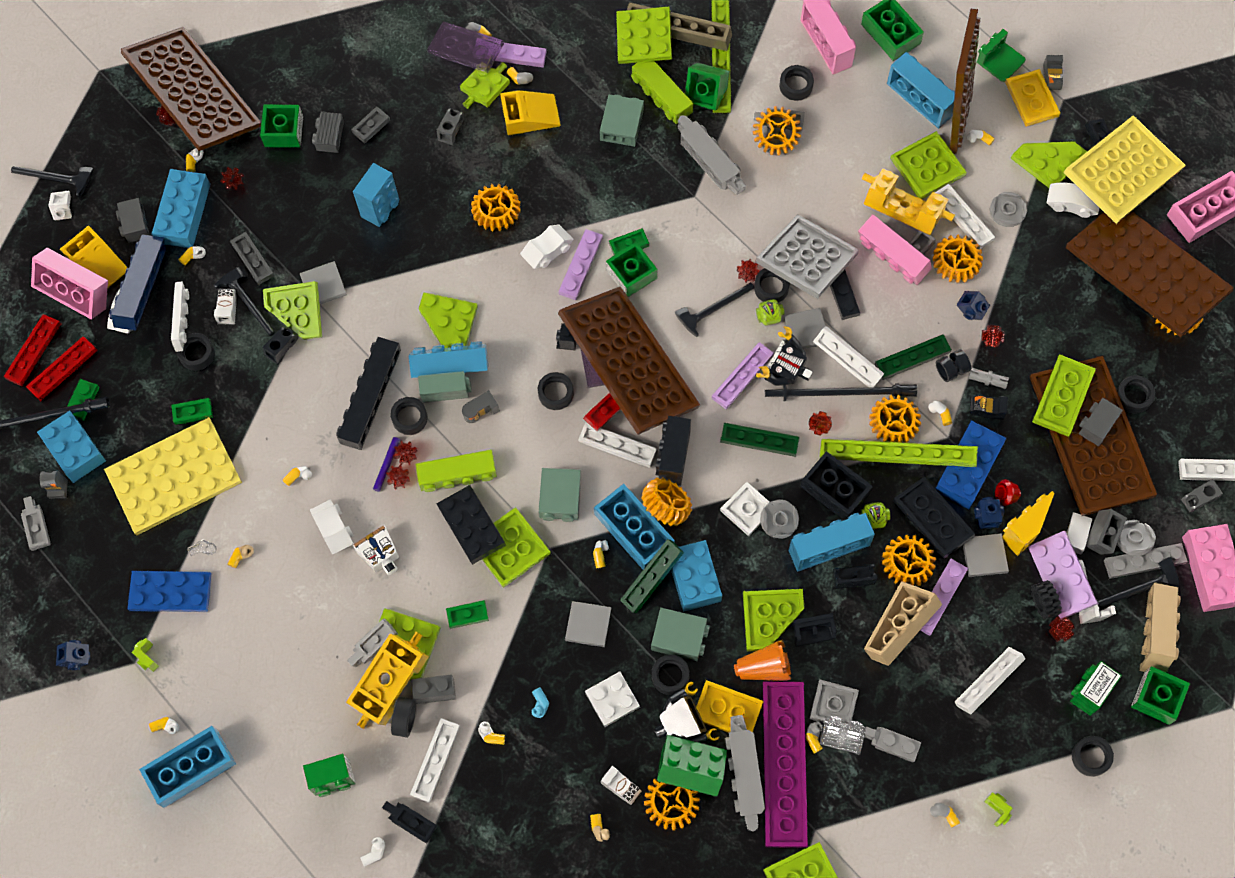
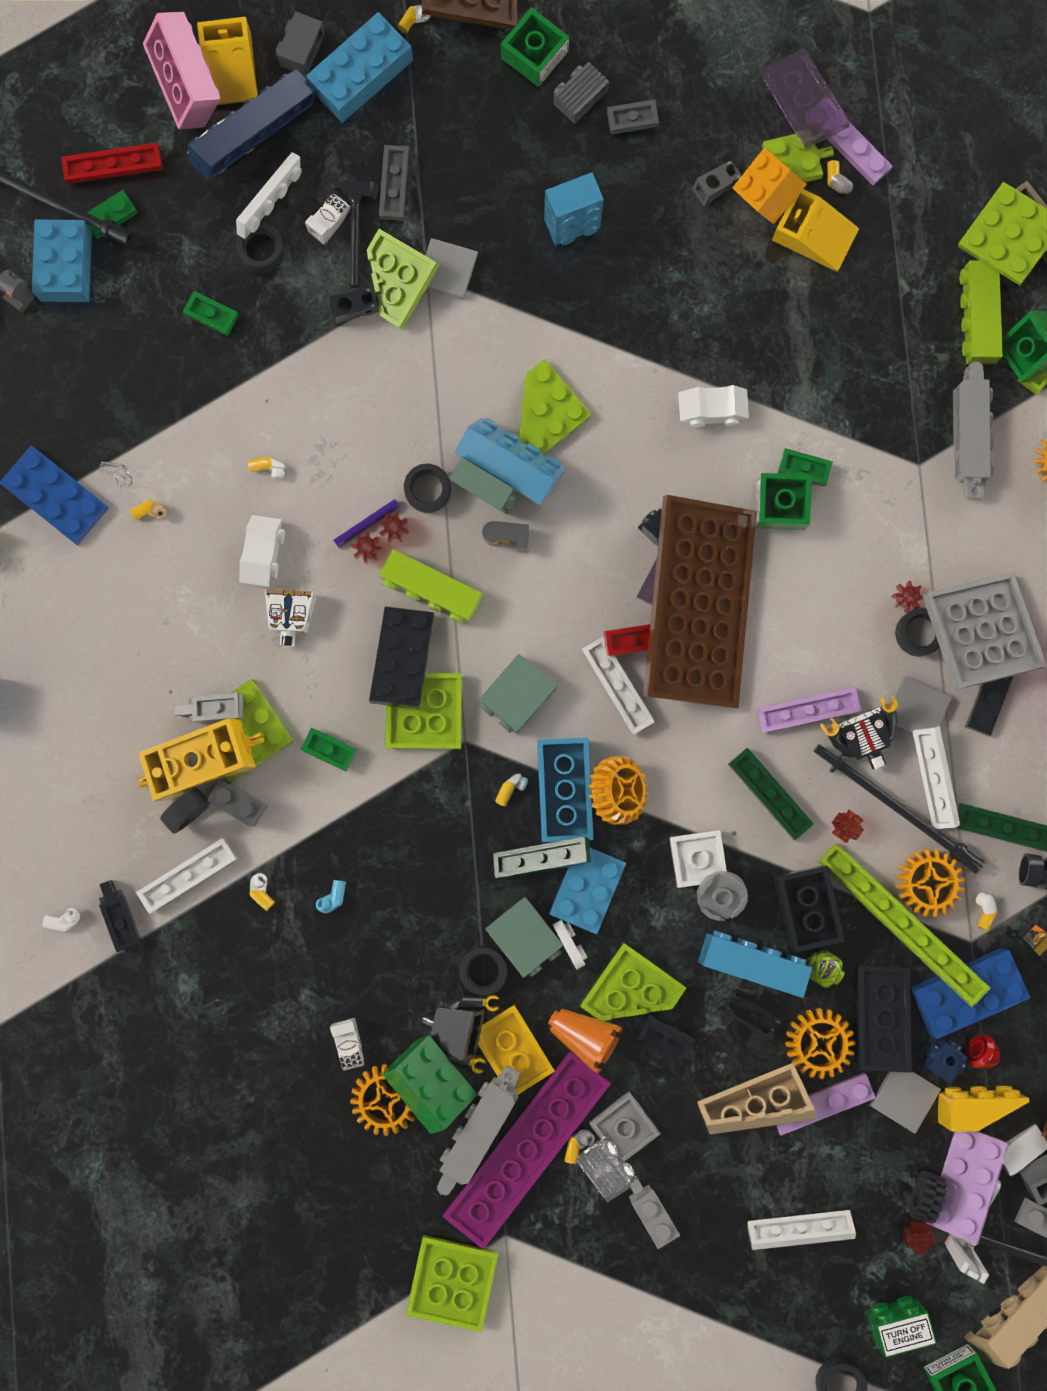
camera: 35 degrees right, 15 degrees up
(32, 350) = (96, 119): red plate -> none
(172, 476) = (143, 370): light yellow plate -> none
(192, 253) = (336, 129): arm -> none
(236, 180) = (438, 63): clear red gear -> none
(329, 775) = (70, 813): green brick -> none
(369, 393) = (404, 431): black brick -> none
(478, 28) = (837, 86): arm -> none
(483, 104) = (769, 186): none -> light orange brick
(498, 213) = (687, 299): light orange gear -> none
(555, 377) = (602, 558): black tyre -> none
(580, 264) = (735, 452): lavender plate -> none
(588, 624) = (442, 853): light grey tile -> none
(600, 834) = (293, 1067): arm -> none
(612, 699) = (407, 949): white plate -> none
(621, 120) = (909, 315): sand green brick -> none
(673, 449) = (669, 739): black brick -> none
(690, 321) = (801, 606): black piece -> none
(716, 620) = (576, 953): none -> white plate
(769, 312) = (893, 661): lime head -> none
(945, 811) = (648, 1322): arm -> none
(999, 804) = (707, 1356): lime bracket -> none

